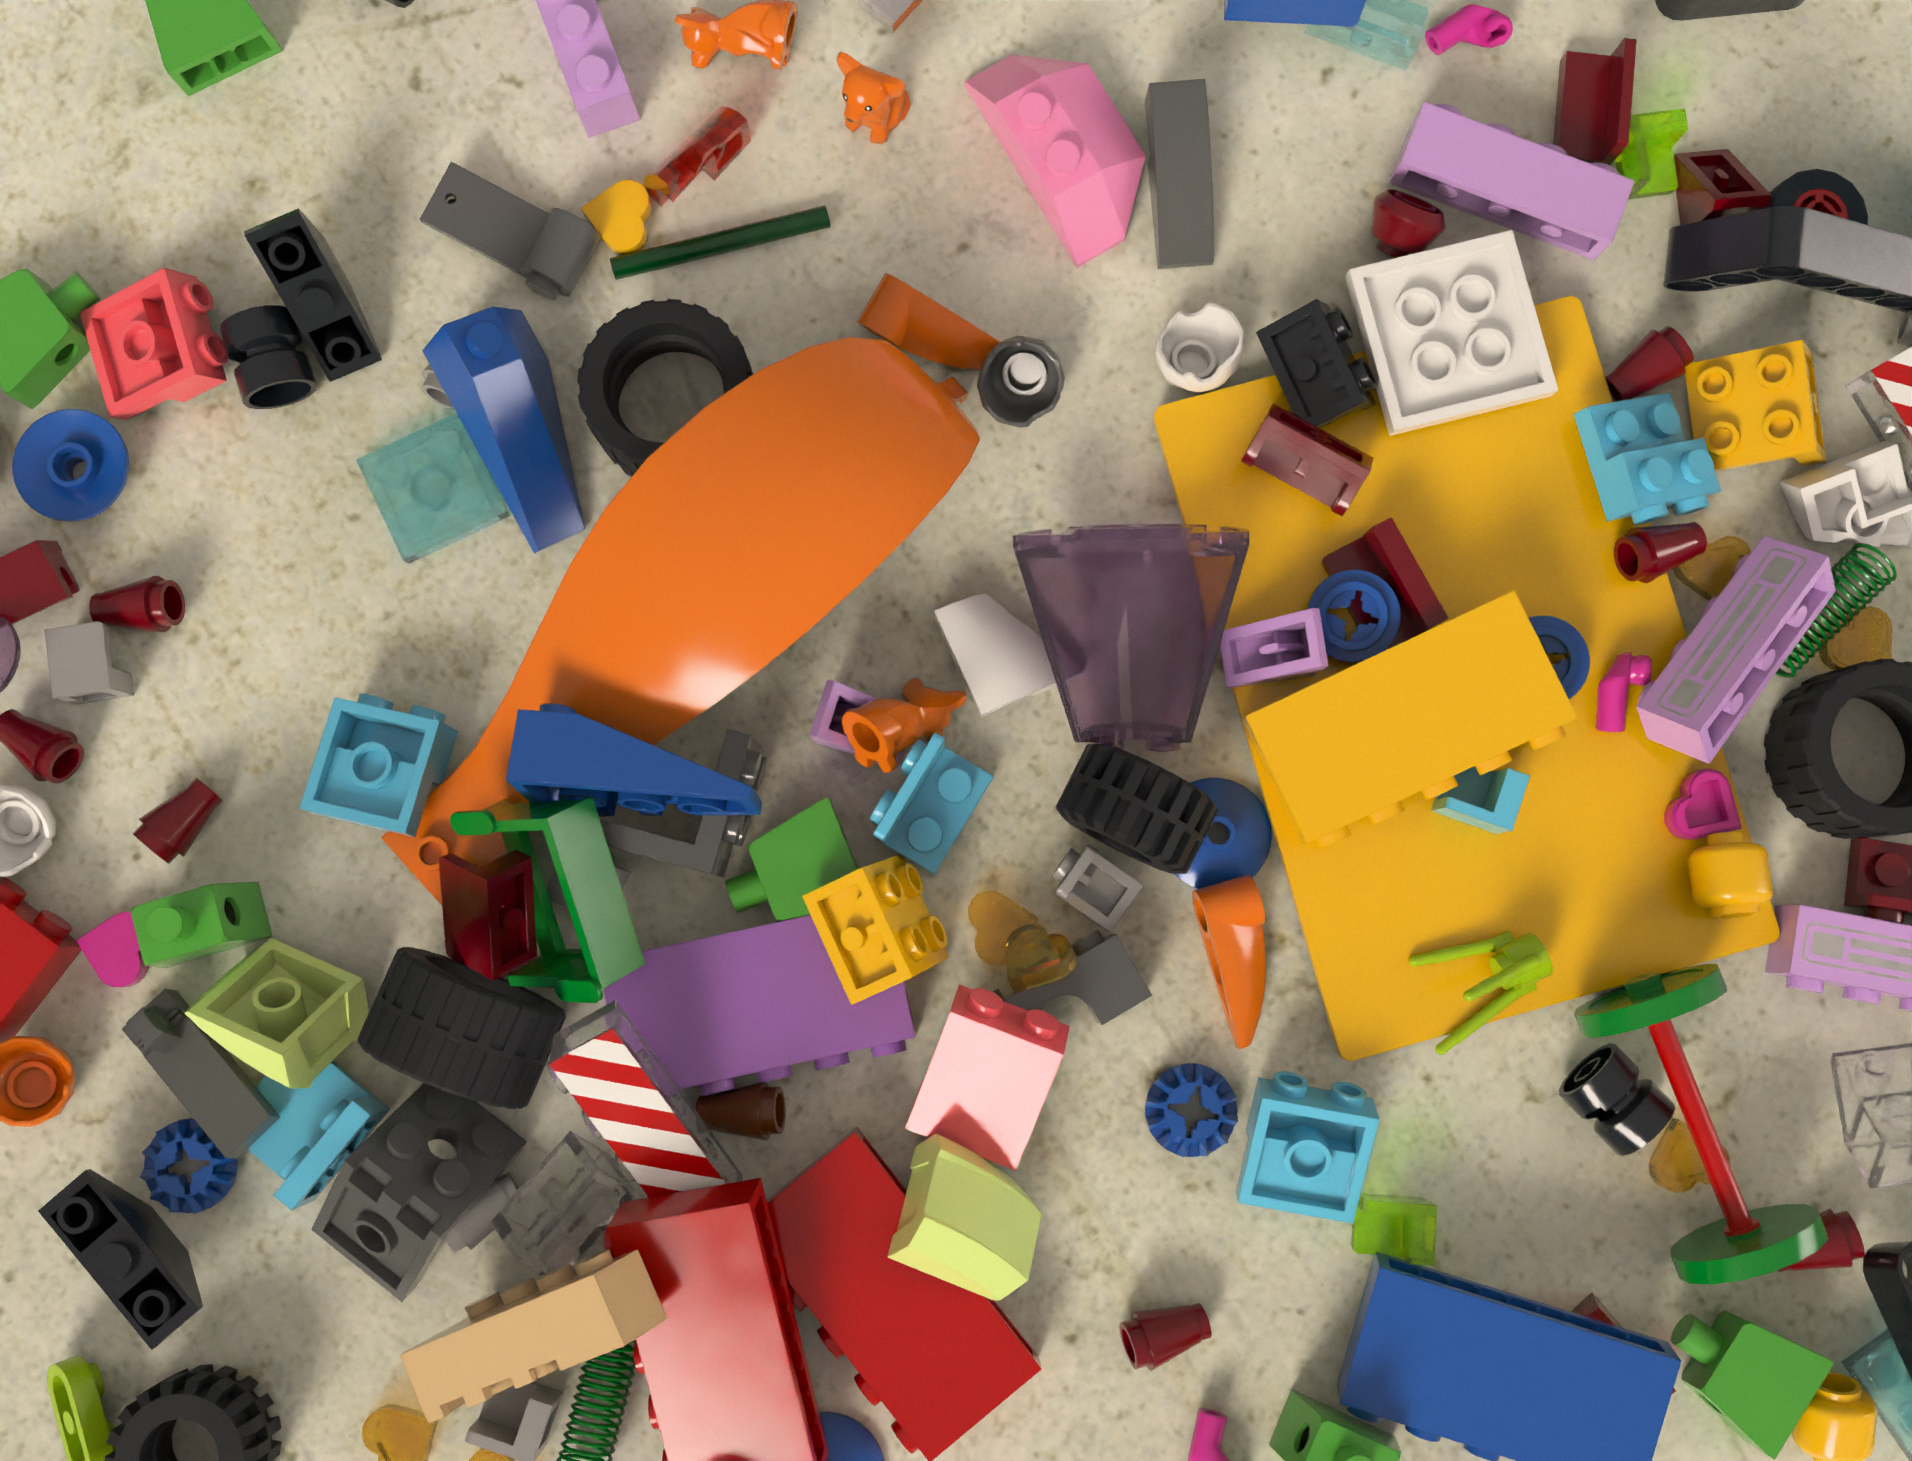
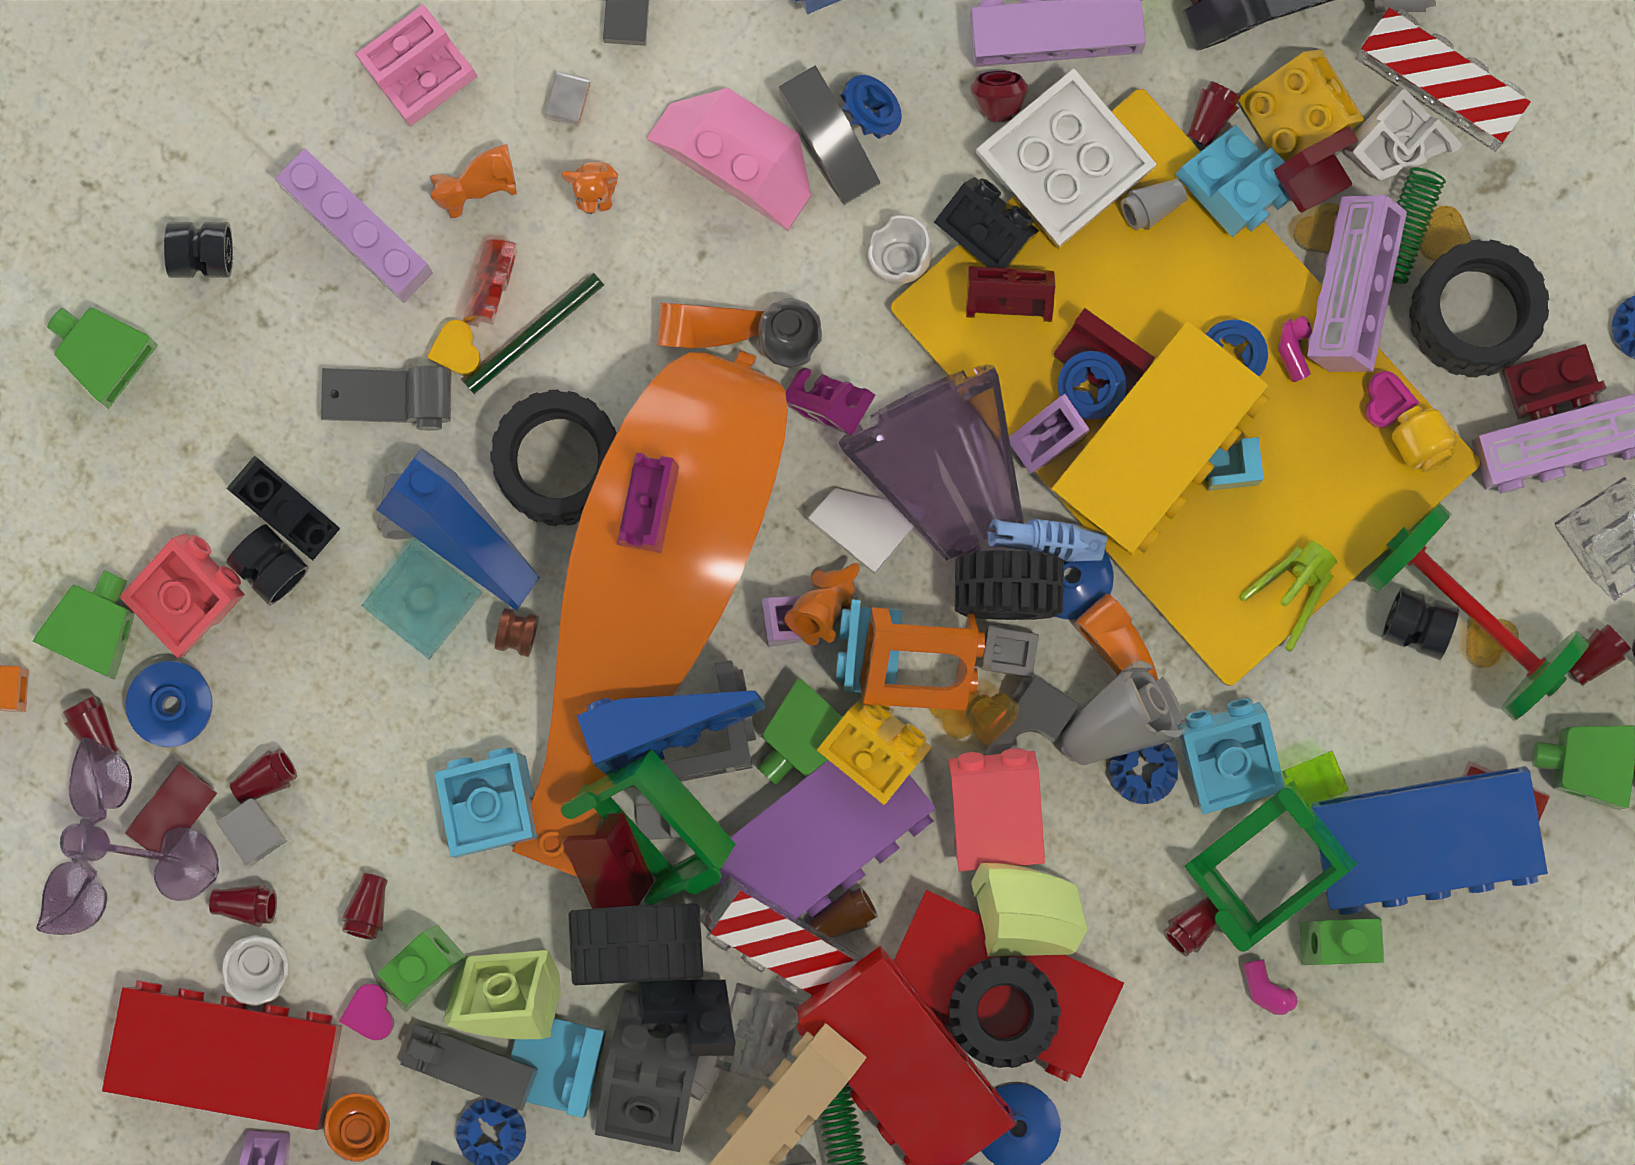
camera: 20 degrees left, 0 degrees up
(509, 1150) = (697, 1004): none -> black plate
(521, 579) = (516, 632): none -> copper wheel
(731, 483) = (648, 503): none -> magenta hinge
(863, 1391) = (1043, 1012): none -> black tyre
(954, 799) = (884, 636): none -> orange panel
(1030, 487) = (829, 401): none -> magenta hinge
(1198, 1040) = (1124, 718): none -> light grey cone
(1217, 1353) = (1233, 914): none -> green piece
(1226, 782) = (1053, 537): none -> light blue hinge
(1244, 148) = (875, 95): none -> blue gear
(1529, 435) = (1152, 203): none -> light grey cone
(1657, 550) = (1275, 240): dark red cone -> none
(1740, 490) = (1316, 171): none -> dark red panel

